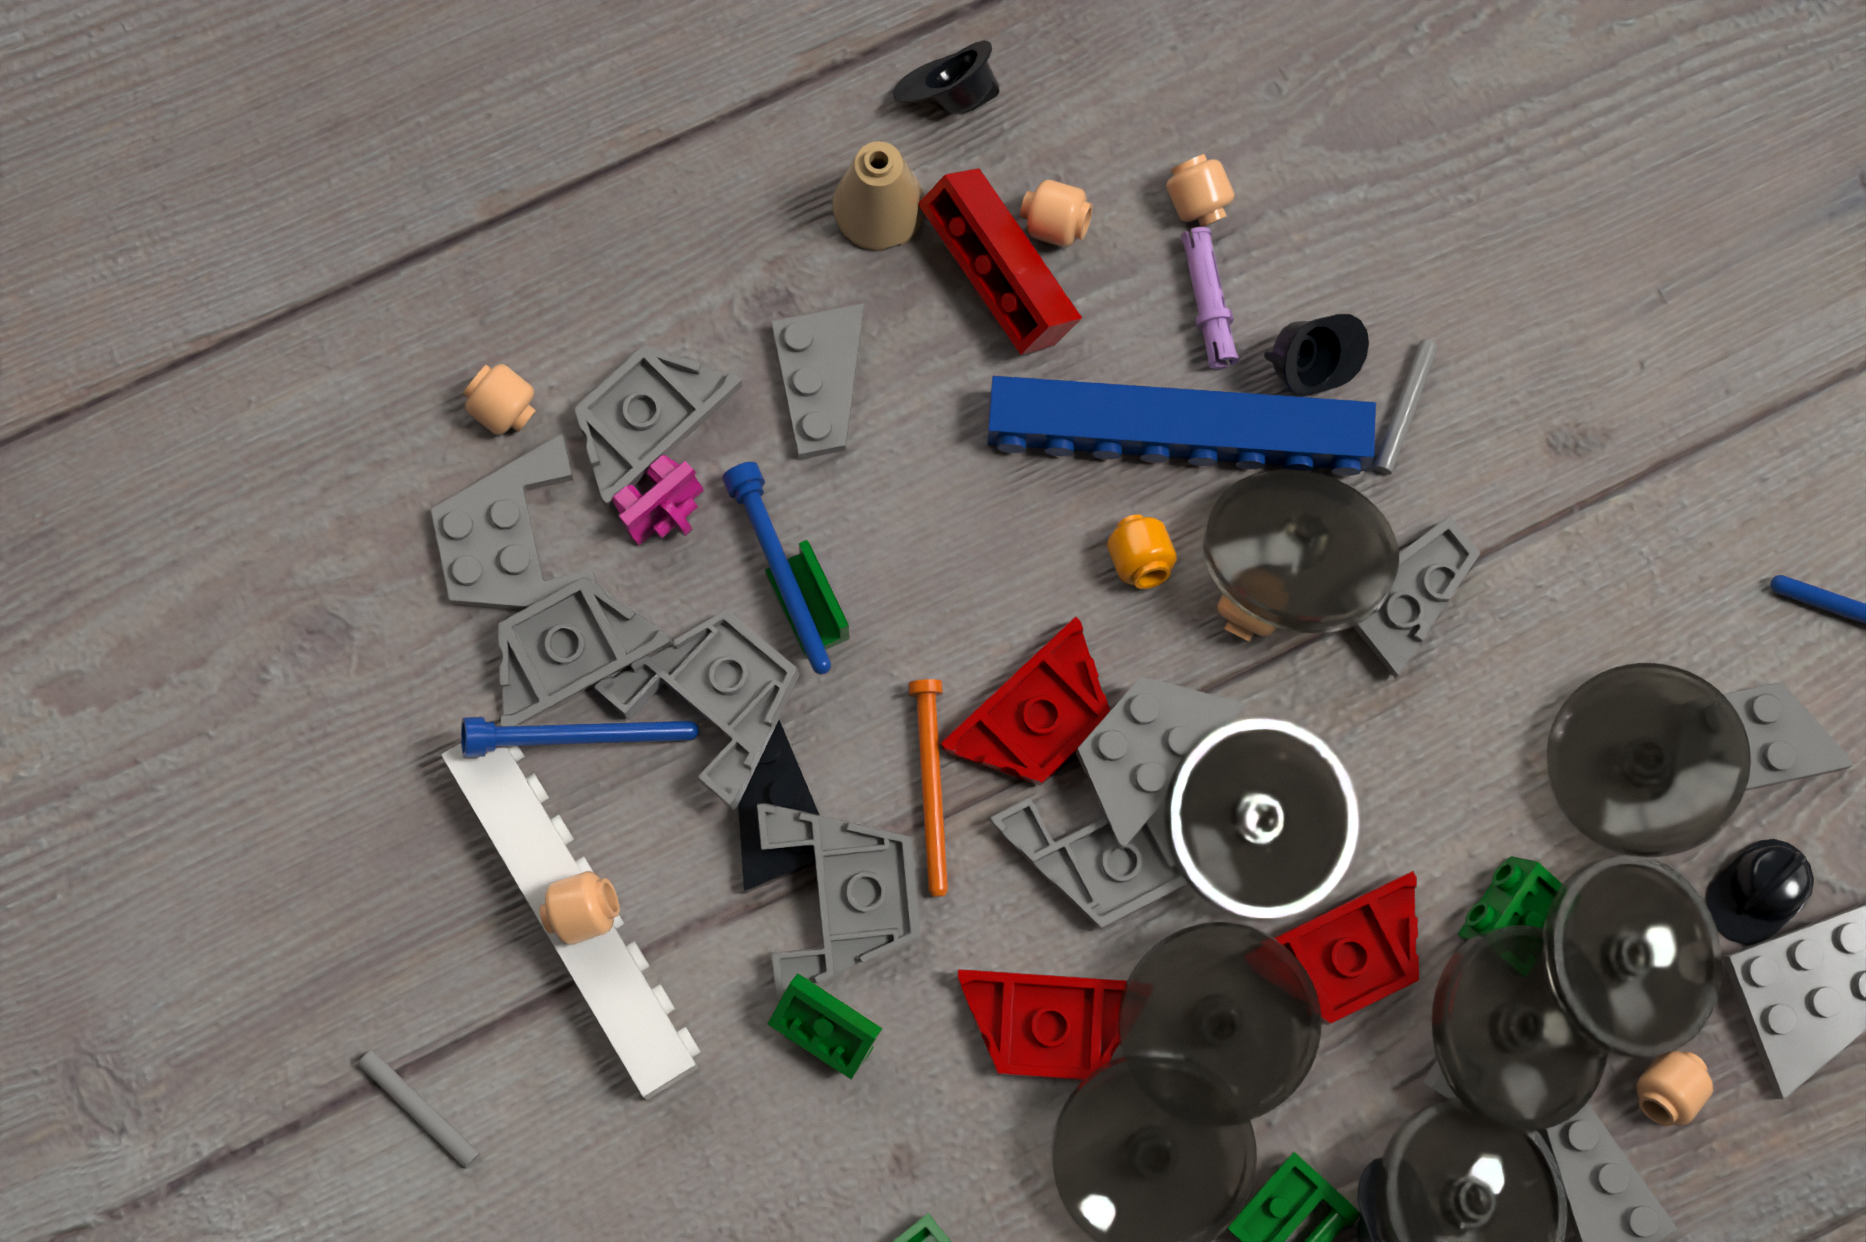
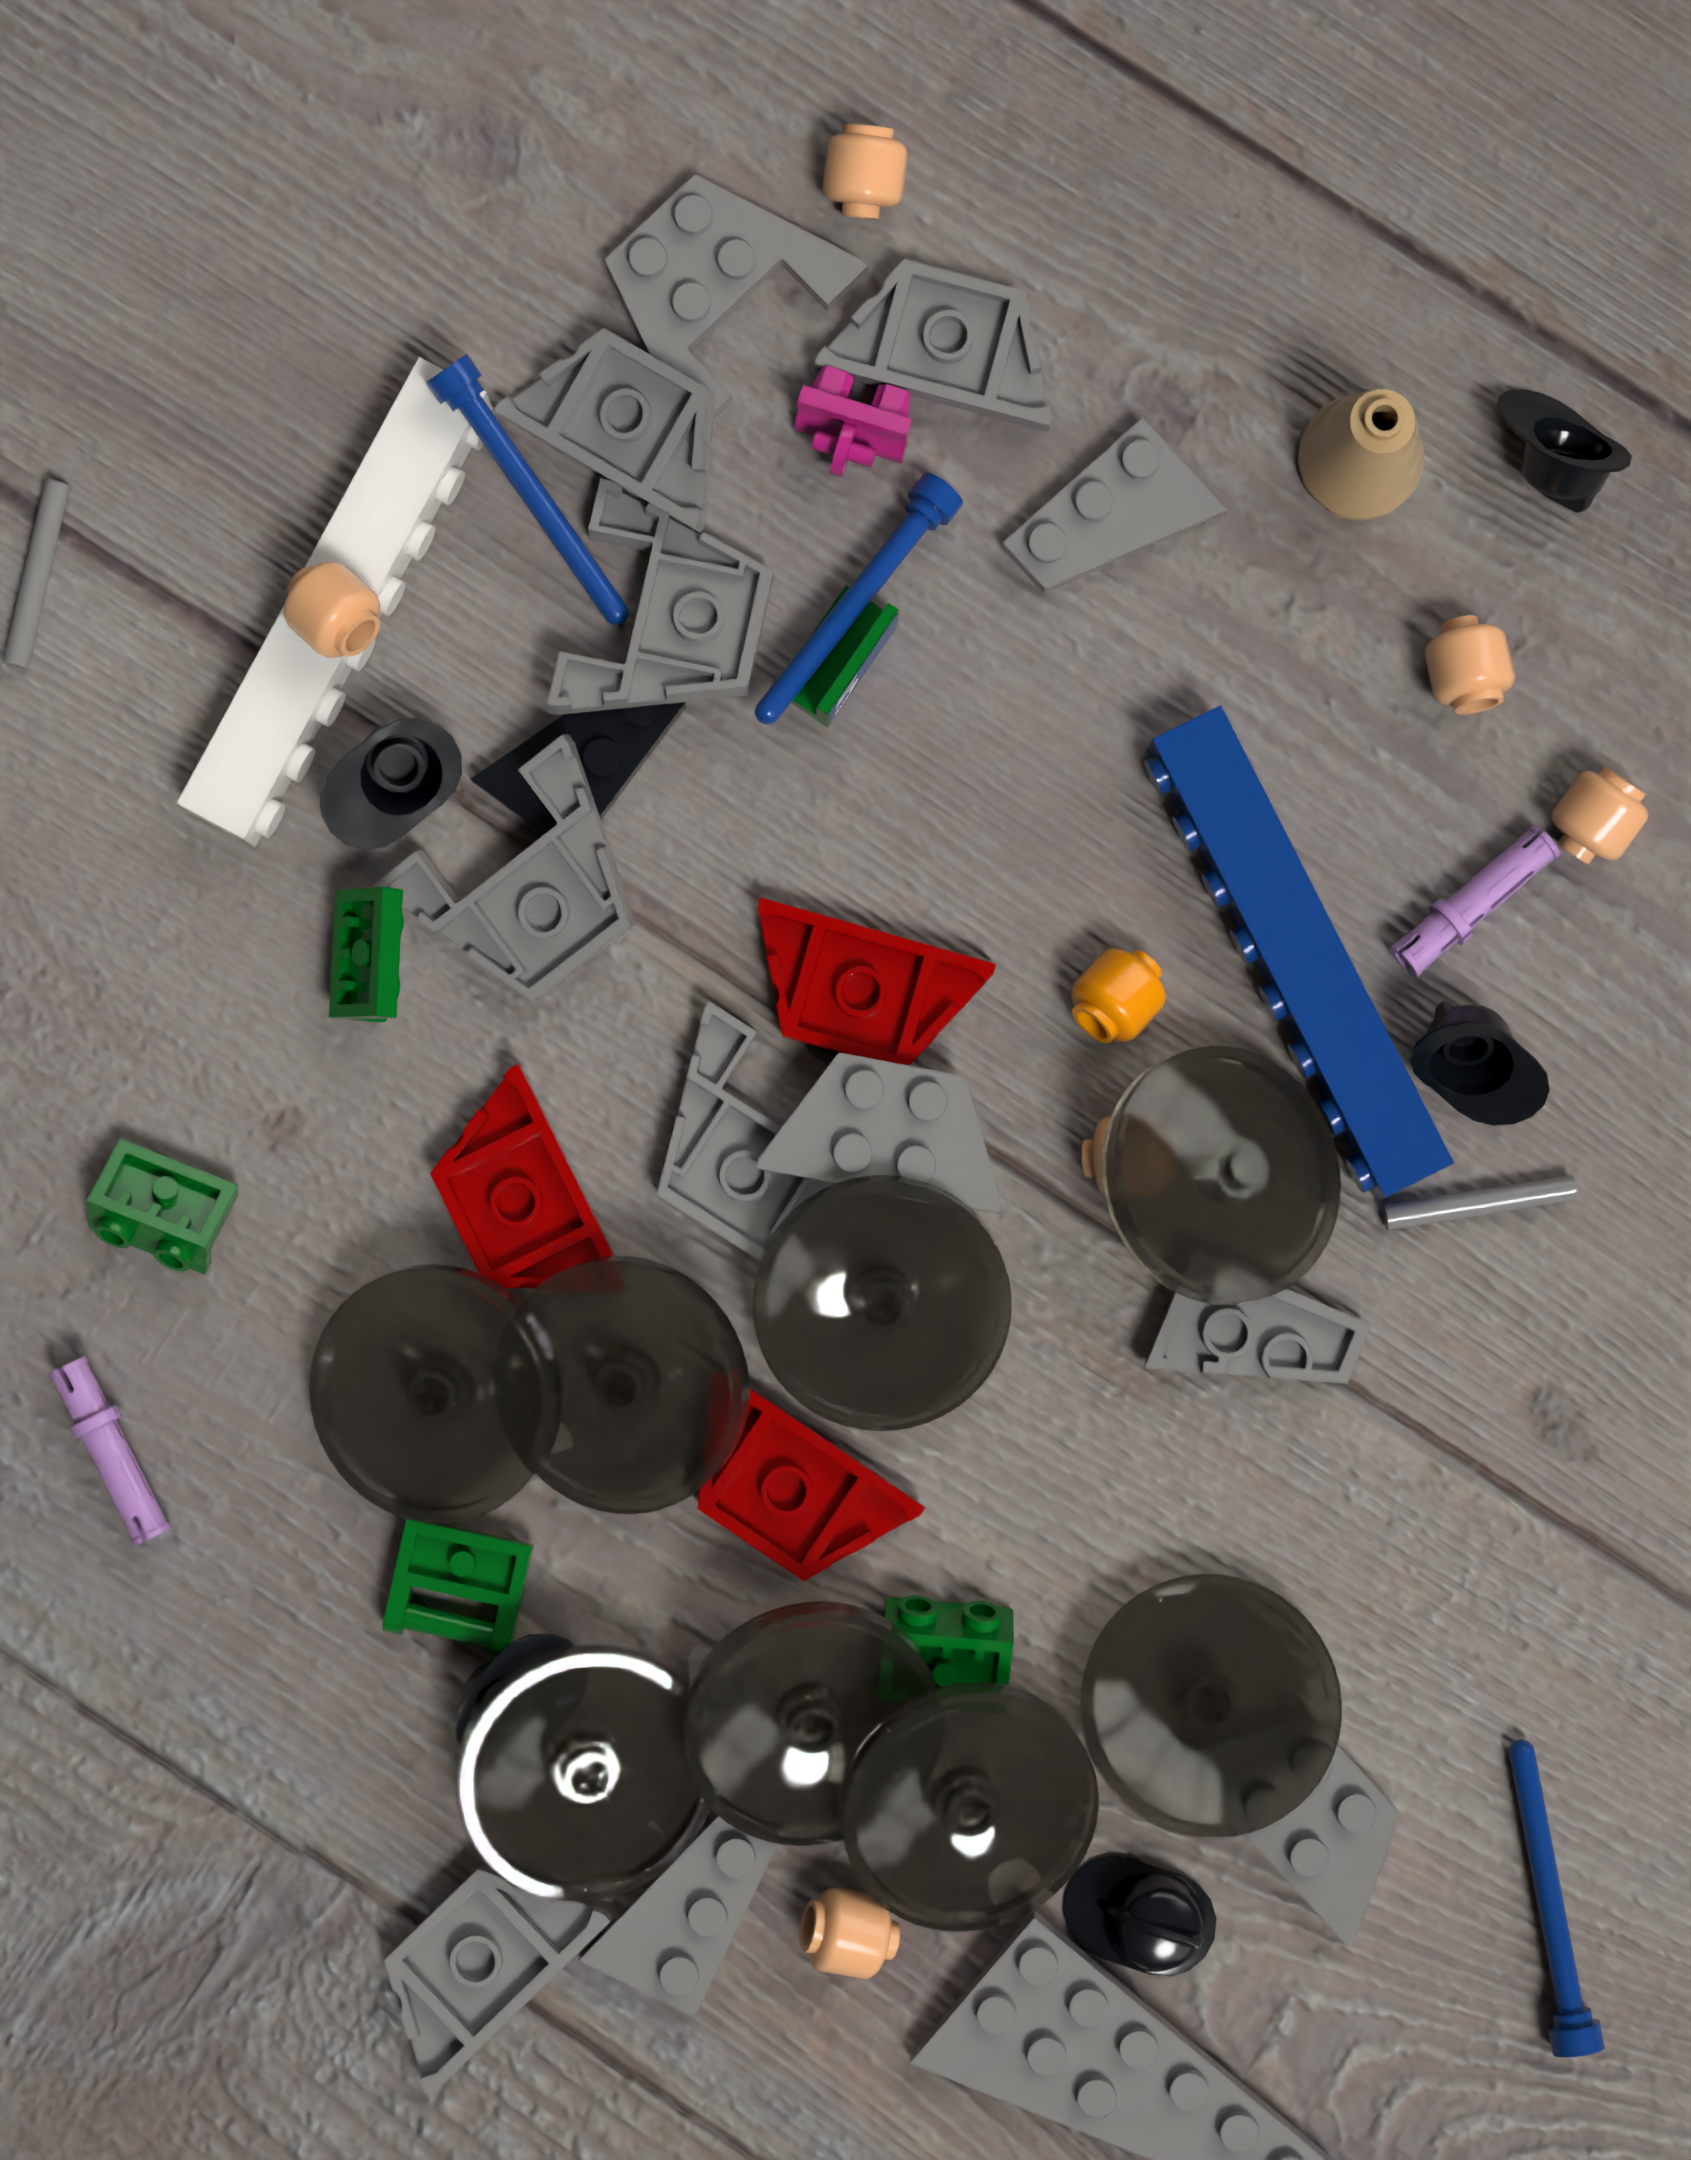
camera: 65 degrees right, 10 degrees up
(716, 941) = (390, 783): none -> black piece
(925, 694) = (712, 914): orange bar -> none
(999, 260) = (1369, 632): red brick -> none

